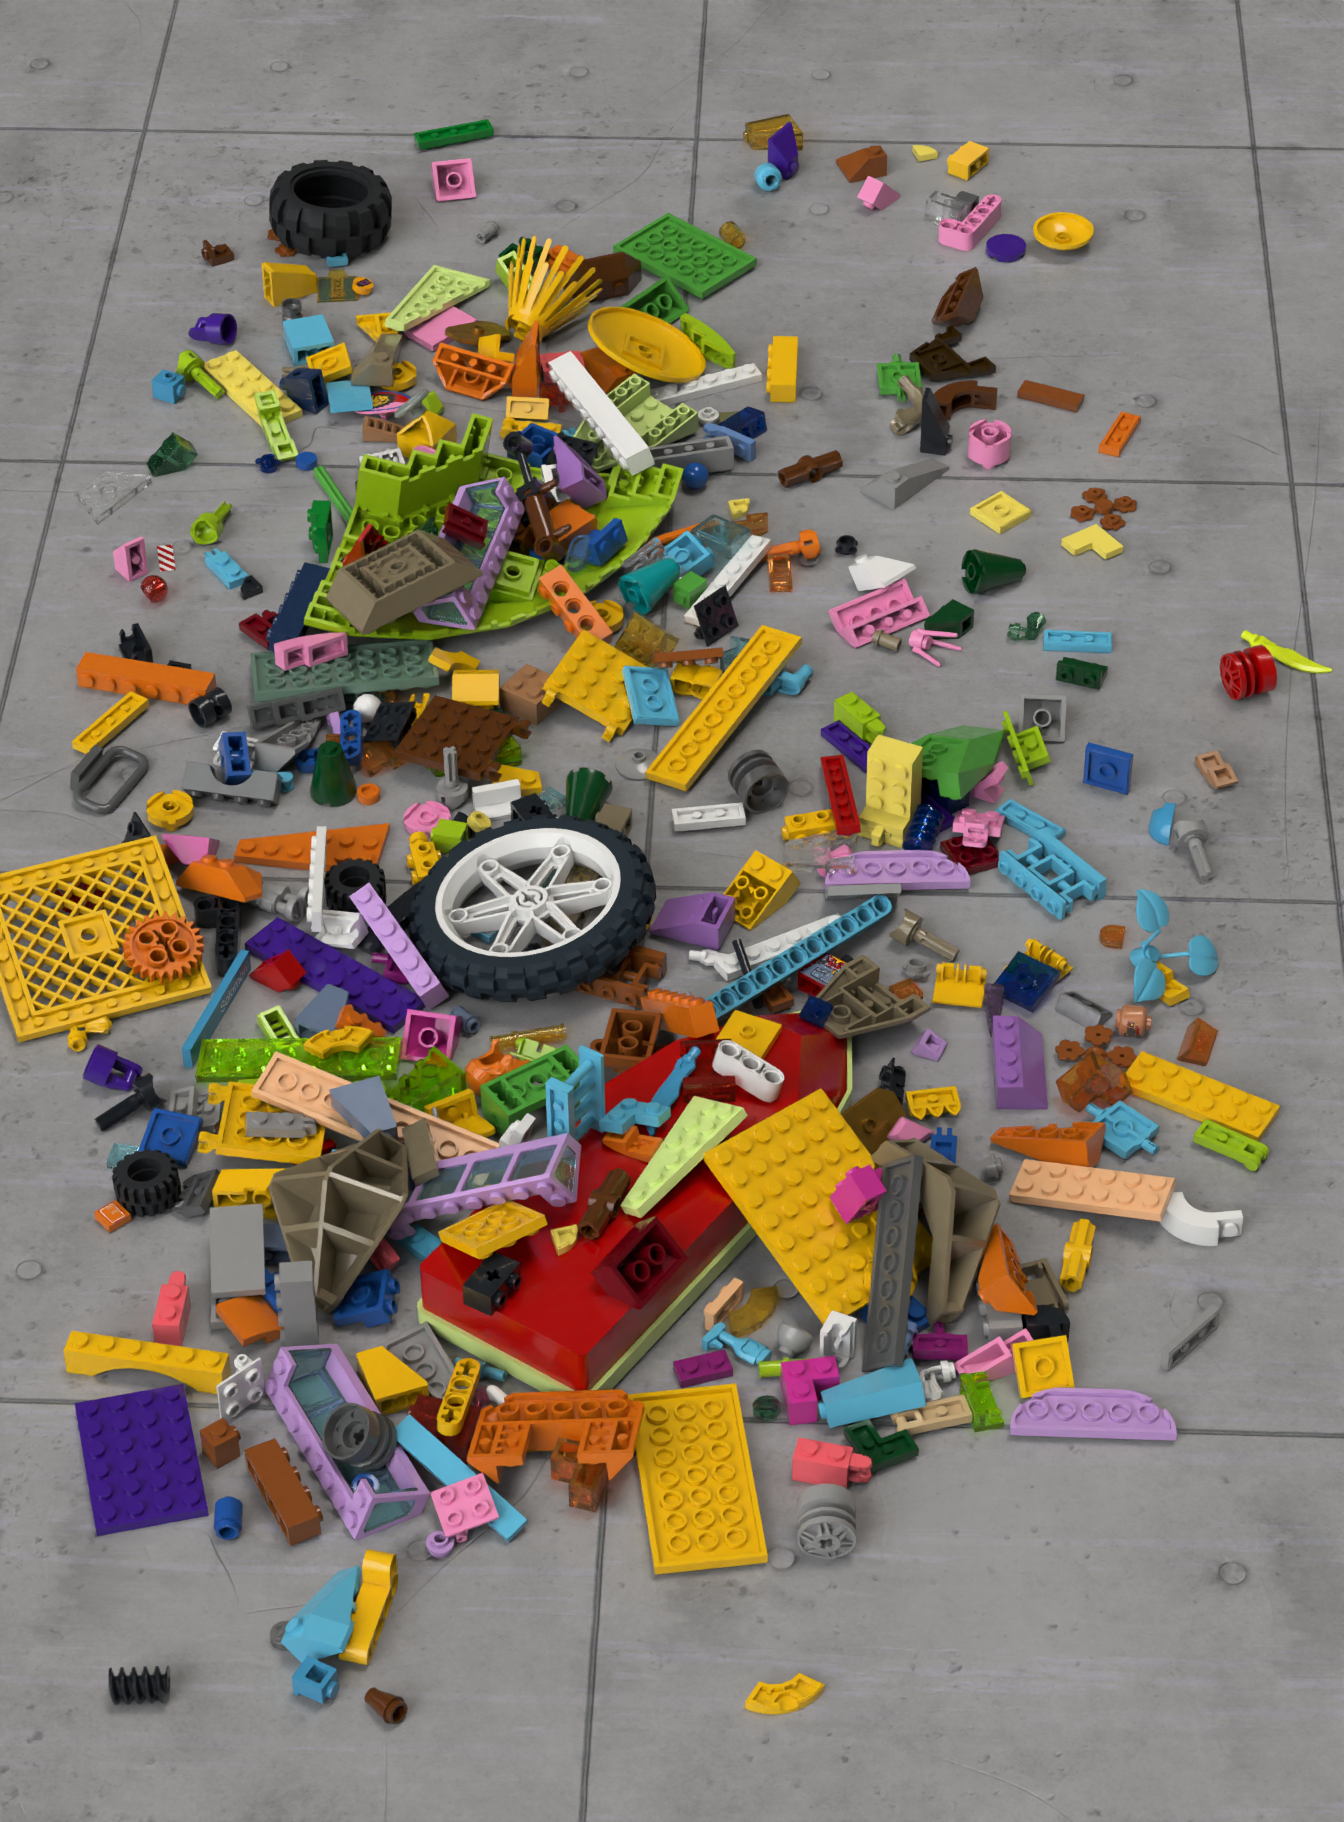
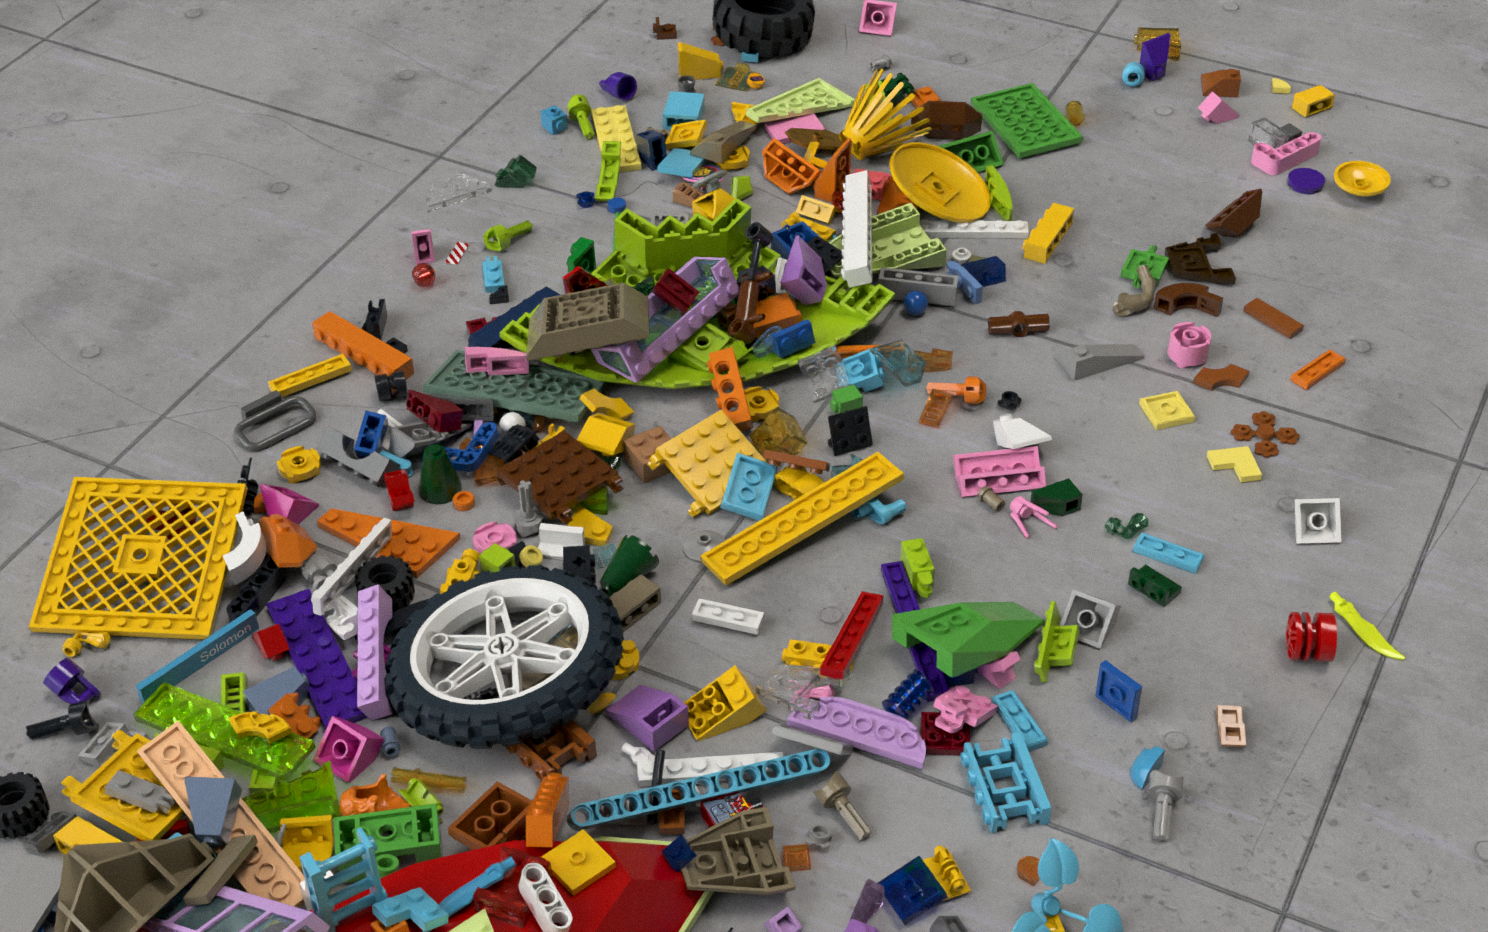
camera: 25 degrees right, 0 degrees up
(118, 1152) = (26, 765): clear light blue tile -> none
(144, 956) = (164, 587): orange gear -> none
(172, 1134) = (70, 760): blue tile -> none
(204, 903) = (249, 553): none -> white arch
(283, 716) = (435, 412): none -> dark red slope
(299, 801) = (399, 489): none -> red brick
(648, 584) = (811, 385): teal cone -> none
(735, 571) = (901, 393): white plate -> none
(739, 508) = (938, 341): light yellow tile -> none
(758, 781) = (786, 597): flat silver wheel -> none
(891, 790) = (892, 647): light yellow hinge -> none
(934, 427) = (1144, 316): black slope -> none
(959, 986) = (848, 870): yellow hinge -> none
(990, 570) = (1122, 462): dark green cone -> none
(1028, 469) = (1228, 376): none -> dark orange tile
(1198, 572) = (1317, 520): none -> white slope

